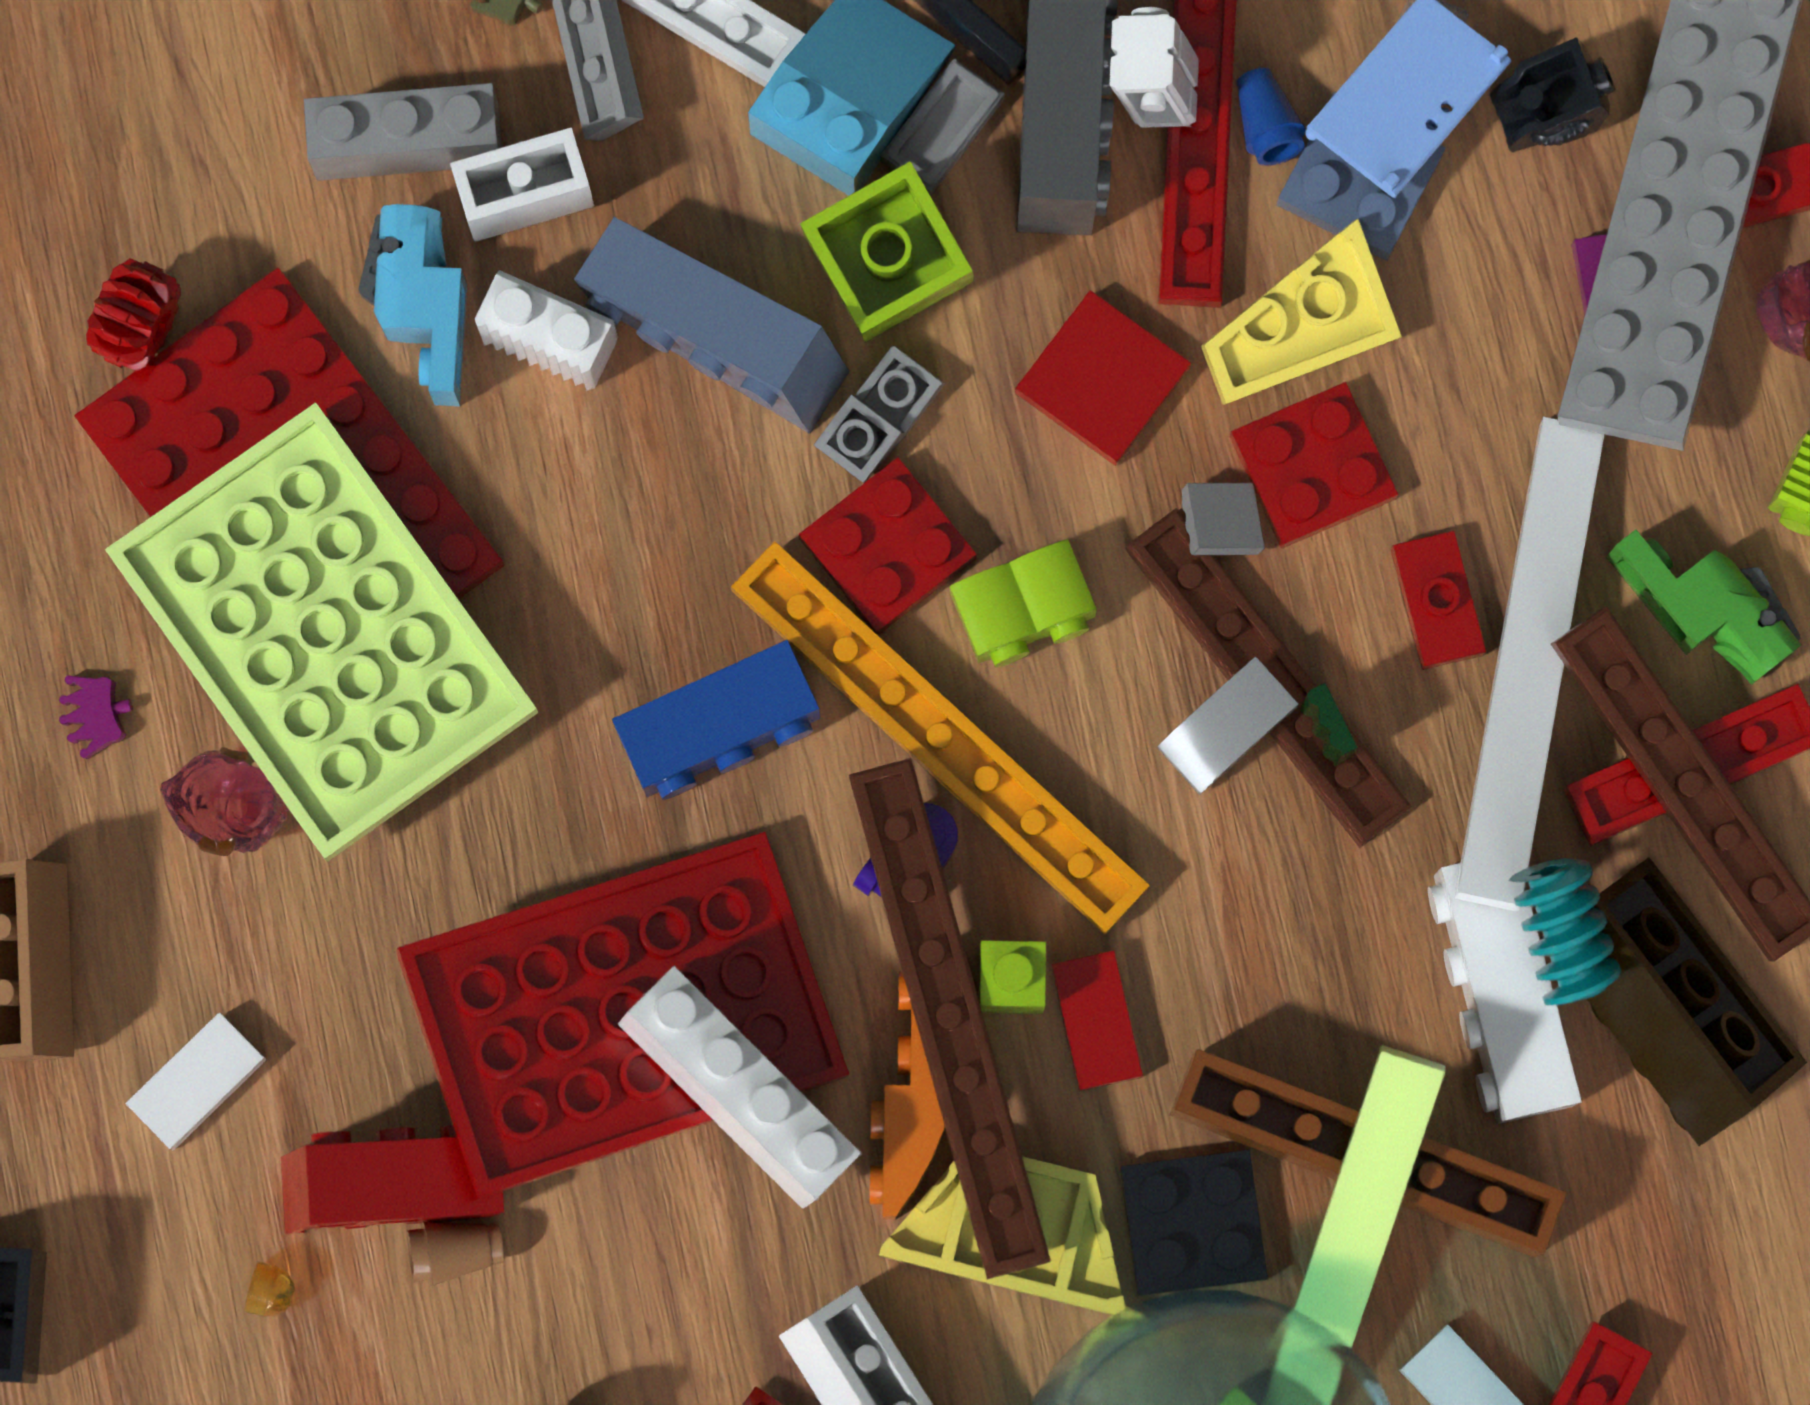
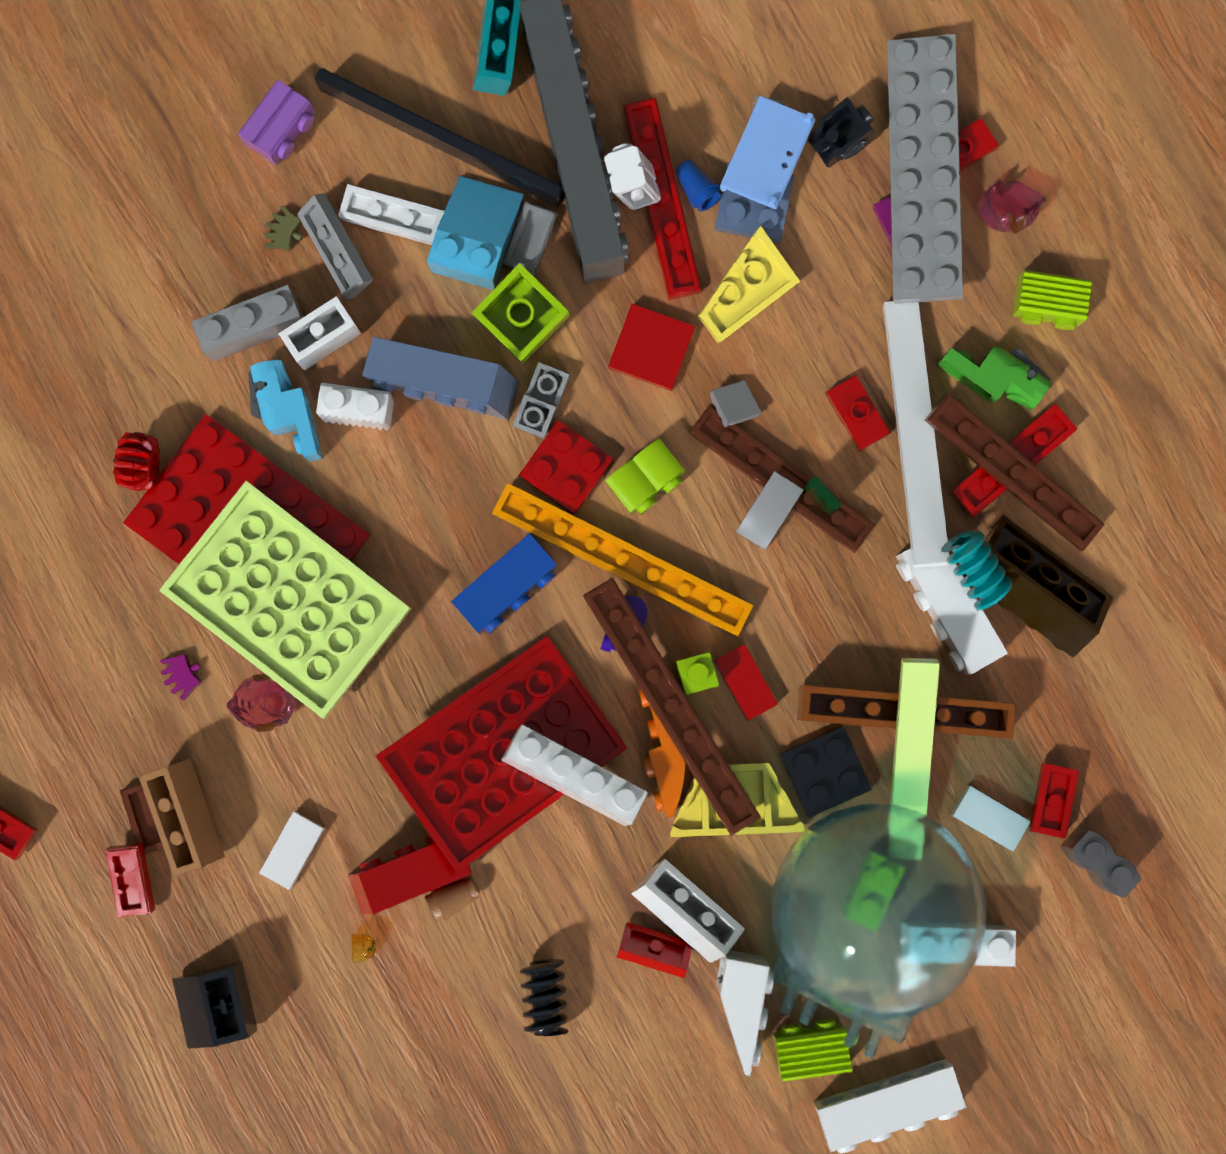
camera: 15 degrees left, 5 degrees up
(1313, 465) = (773, 361): red plate -> none

